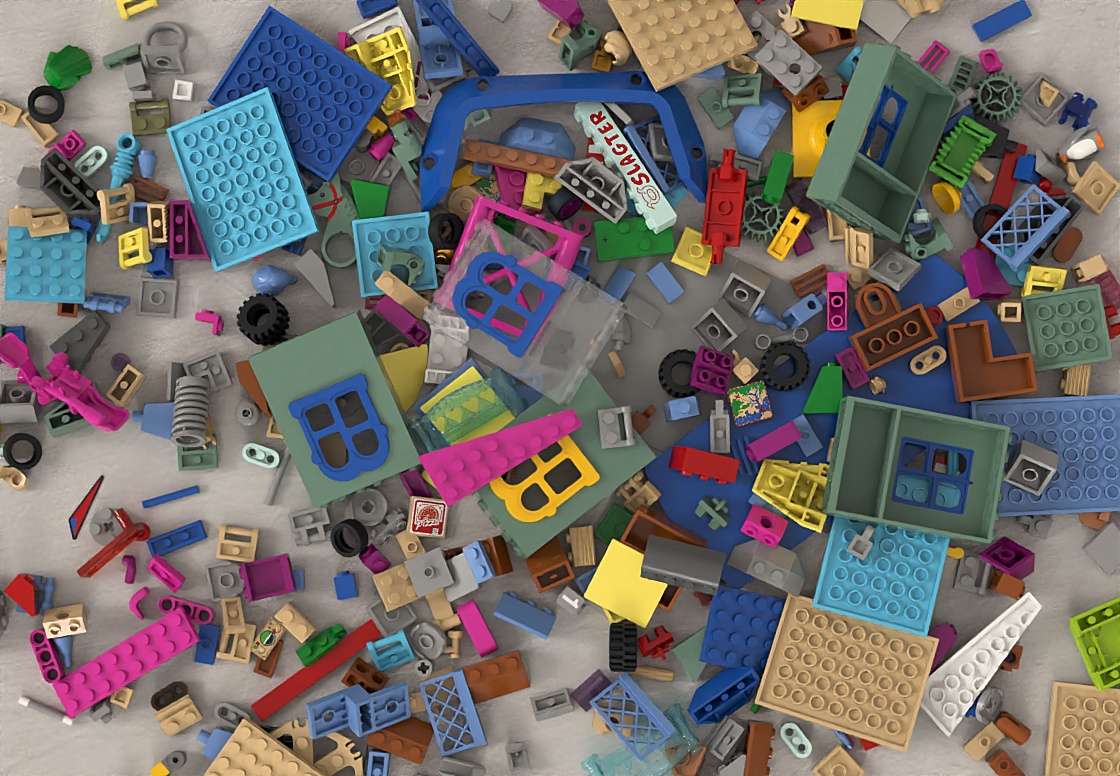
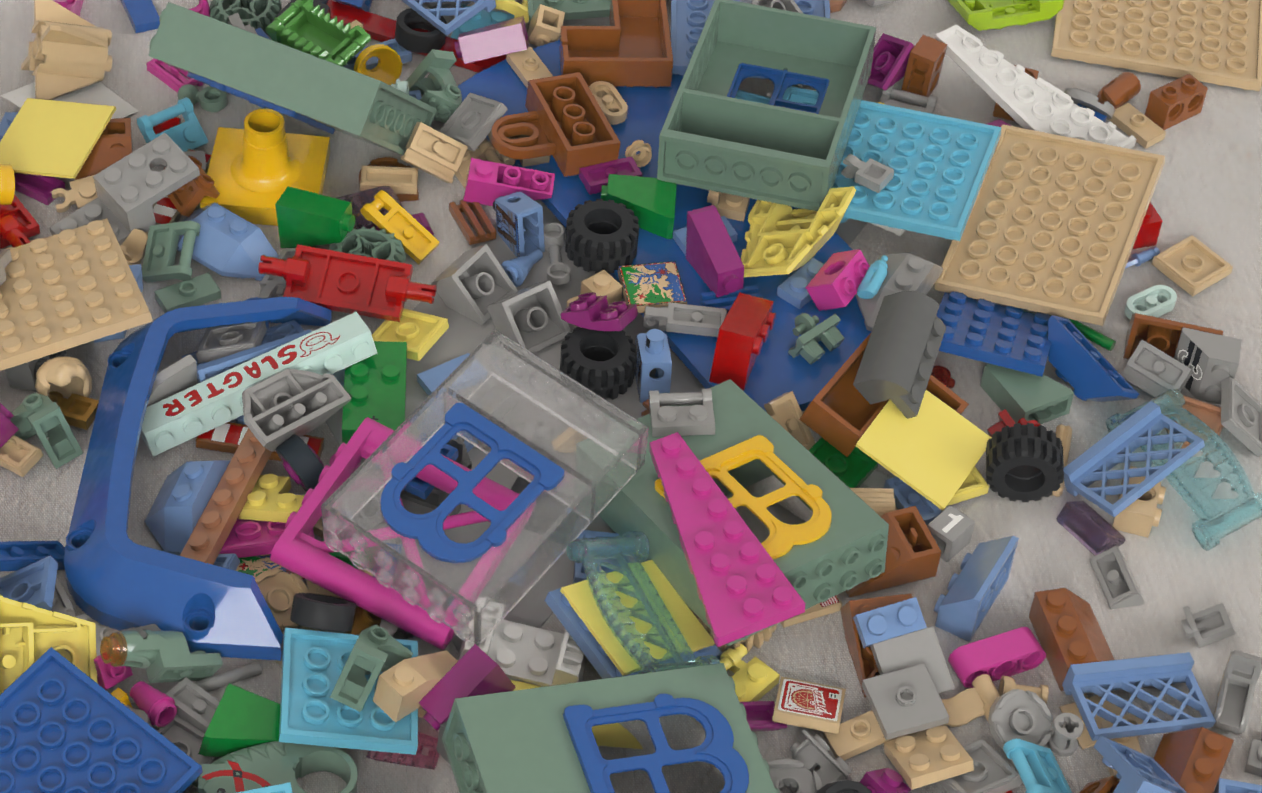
camera: 95 degrees left, 40 degrees down
(761, 548) = (873, 279): none -> medium azure piece

